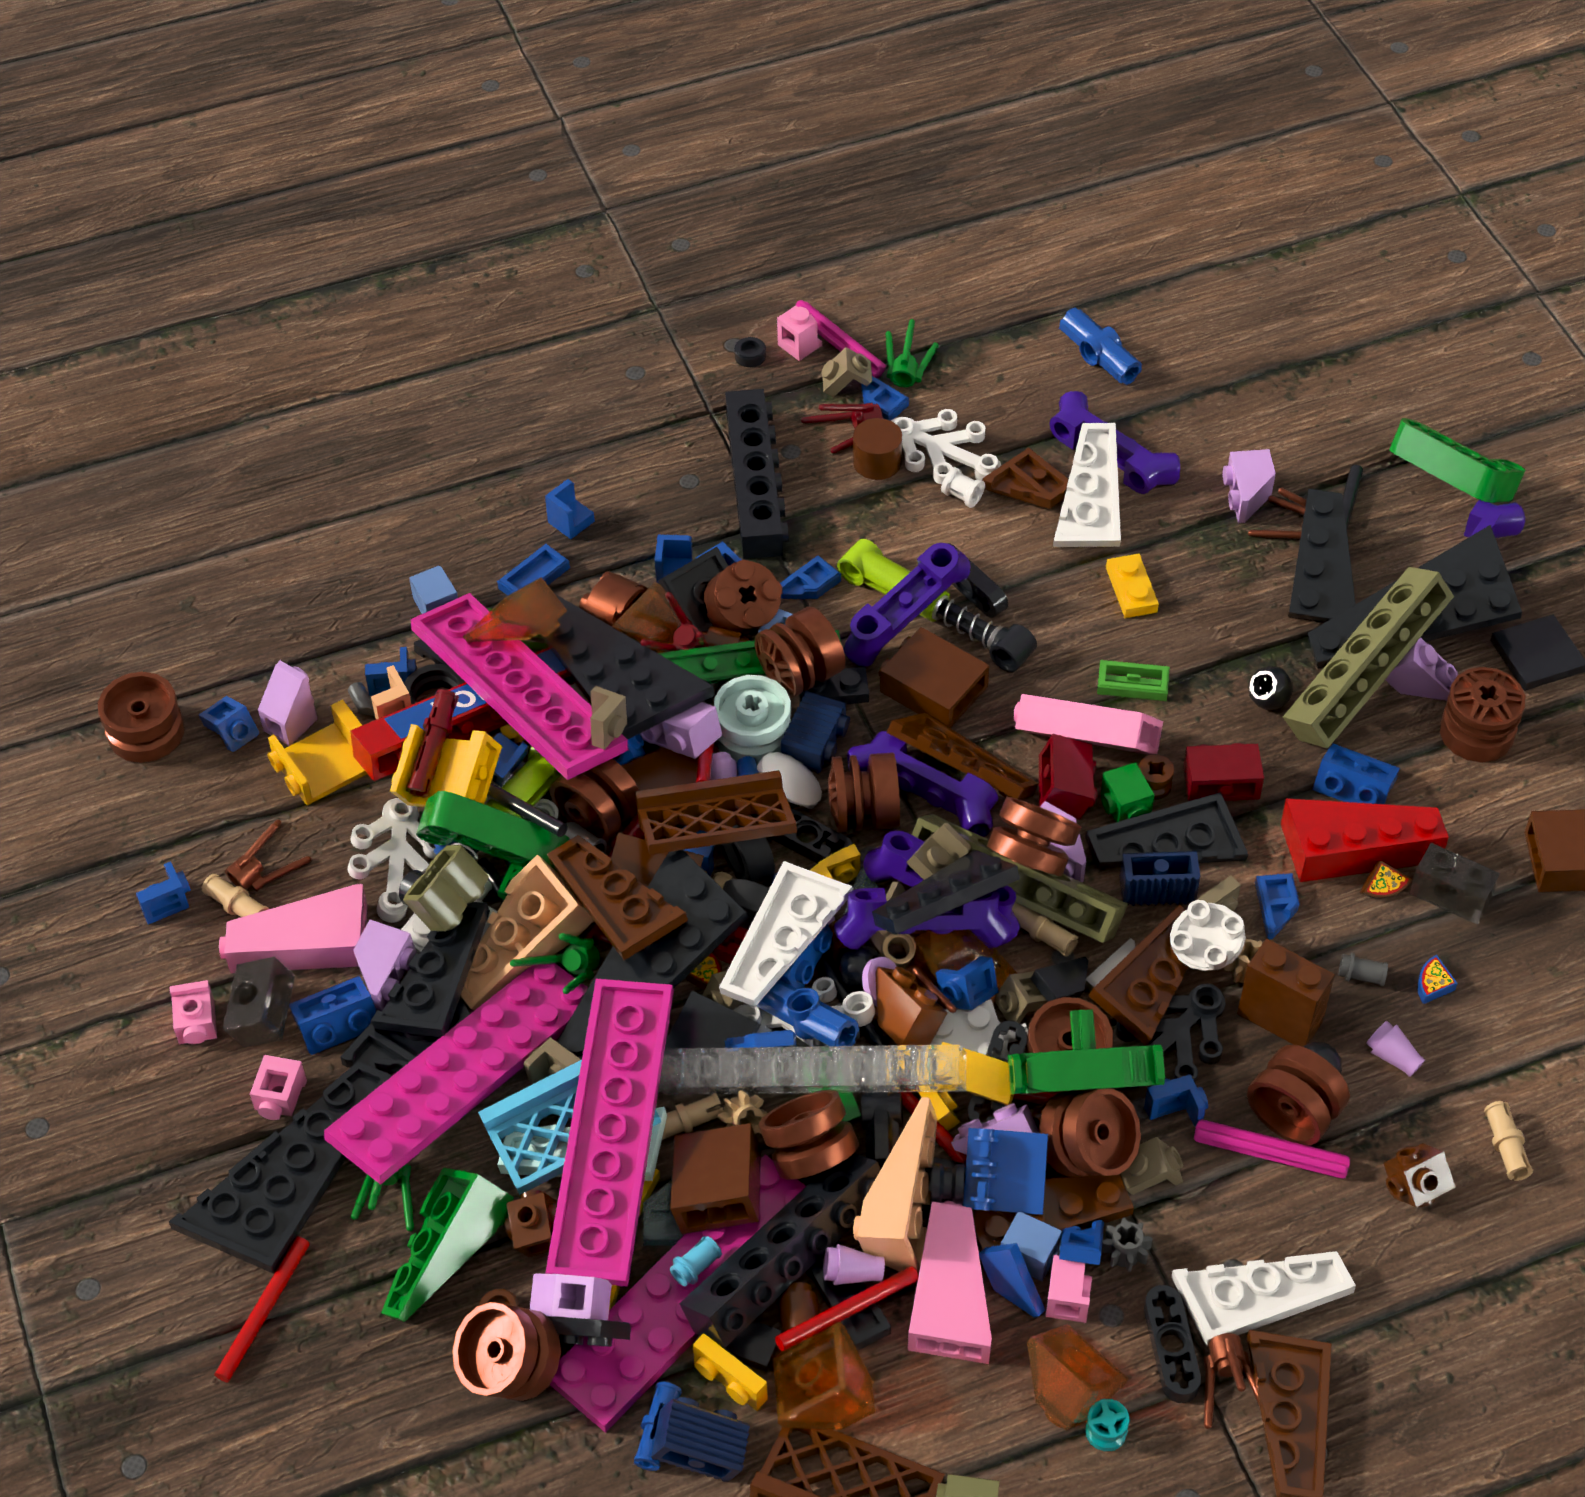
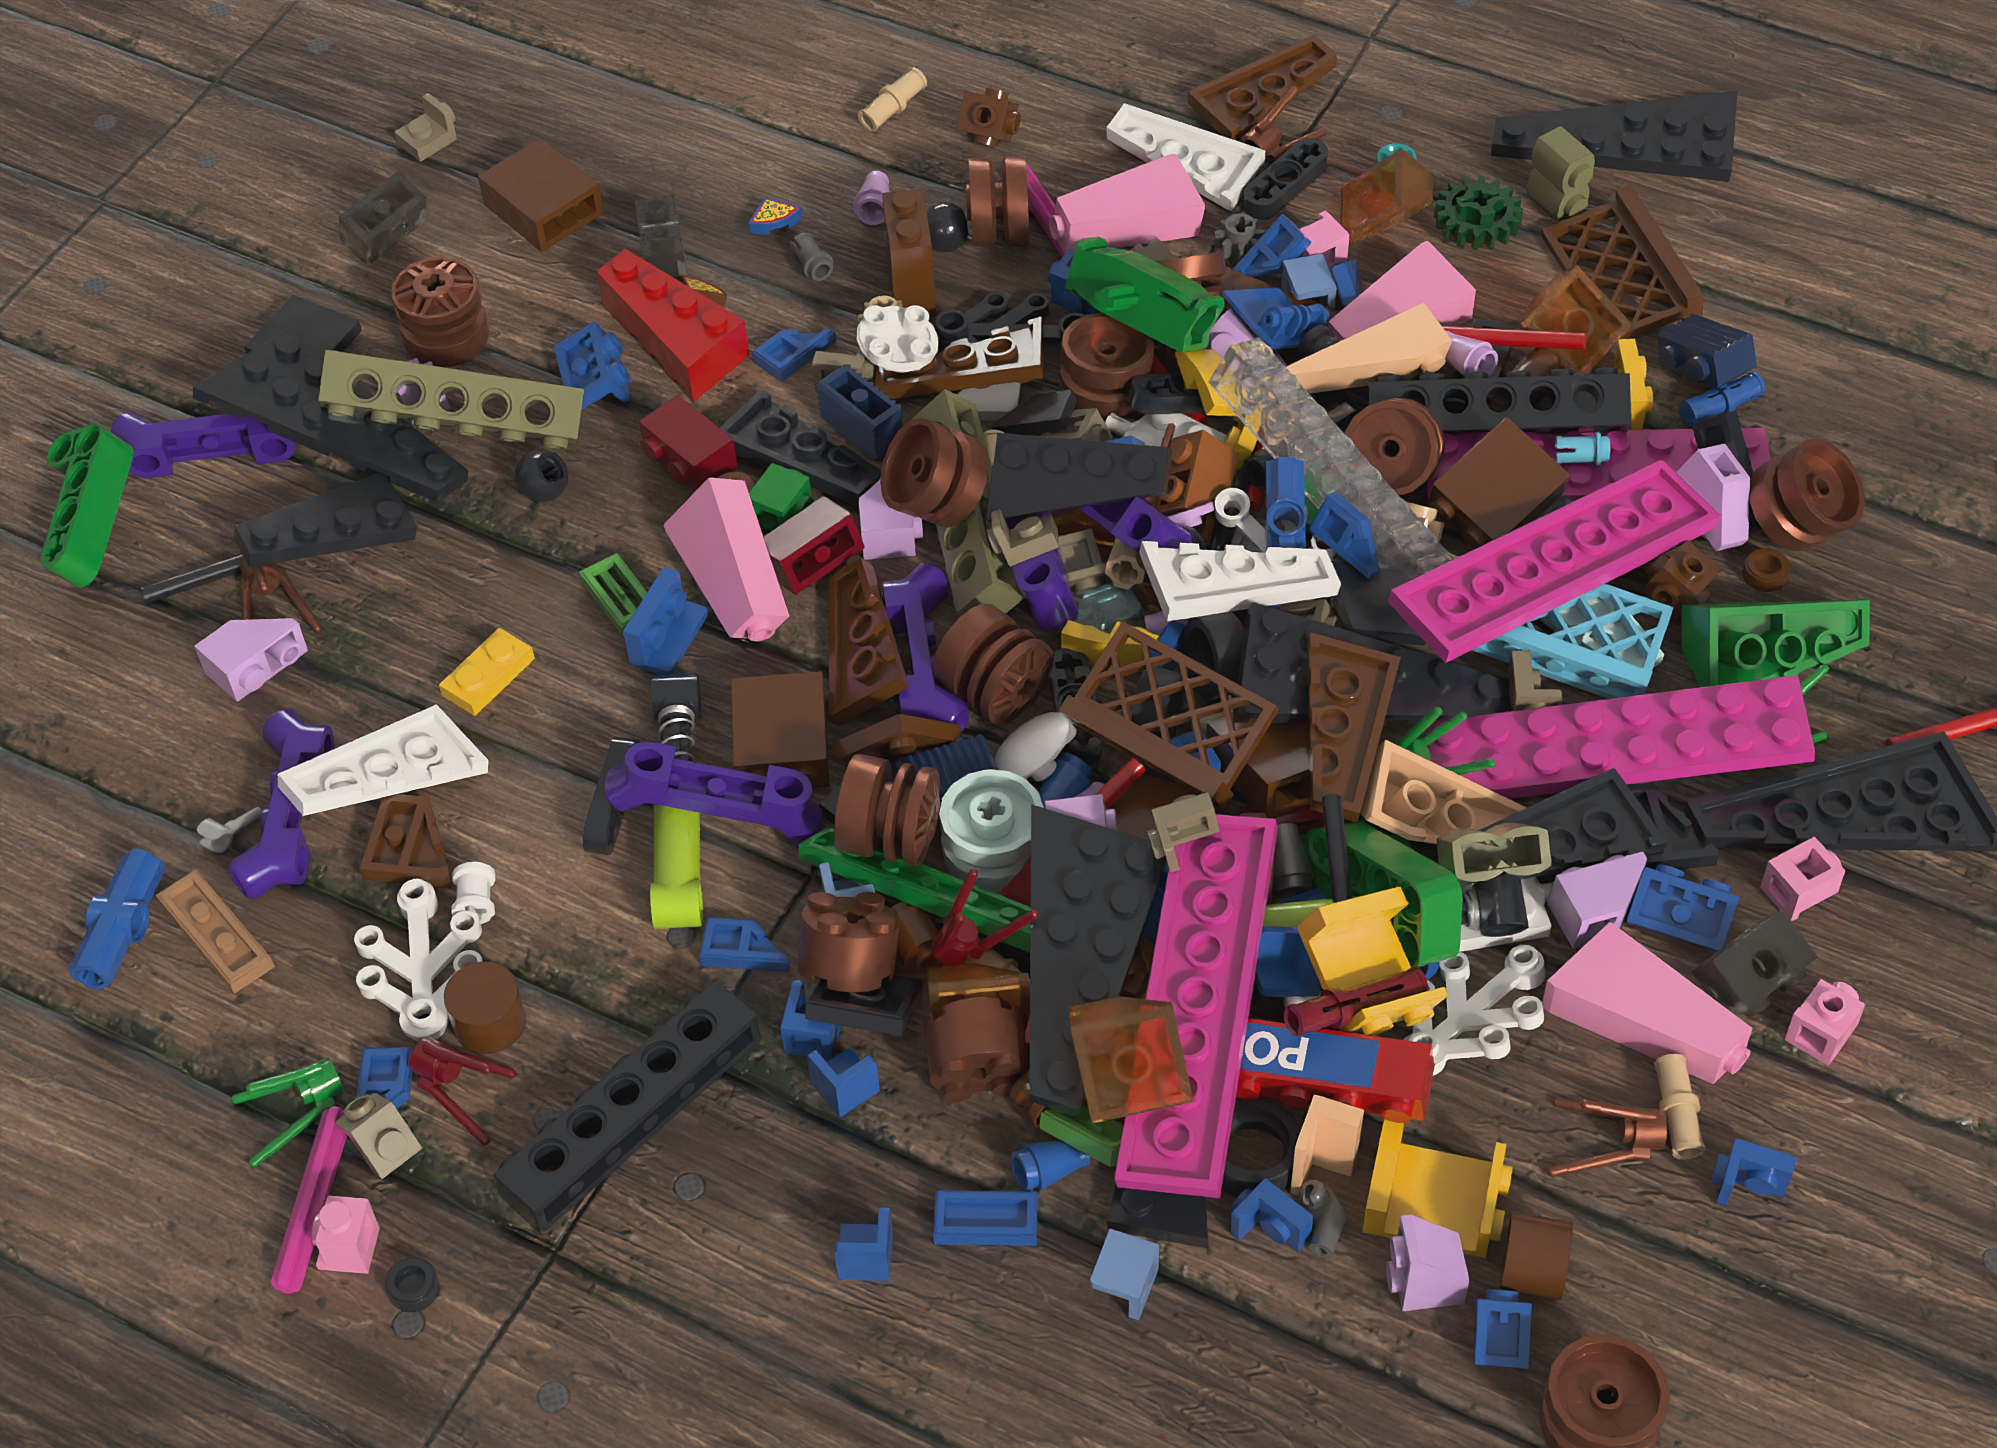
camera: 130 degrees left, 0 degrees up
(238, 755) = (1536, 1255): none -> reddish brown piece
(860, 712) = (896, 738): none -> reddish brown wing
(1012, 1448) = (1478, 213): none -> dark green gear
(1054, 383) = (215, 931): none -> medium nougat tile
(1074, 670) = (663, 625): none -> blue bracket
(1124, 411) = (219, 836): none -> light grey hand
(1218, 1194) = (1131, 207): none -> bright pink slope

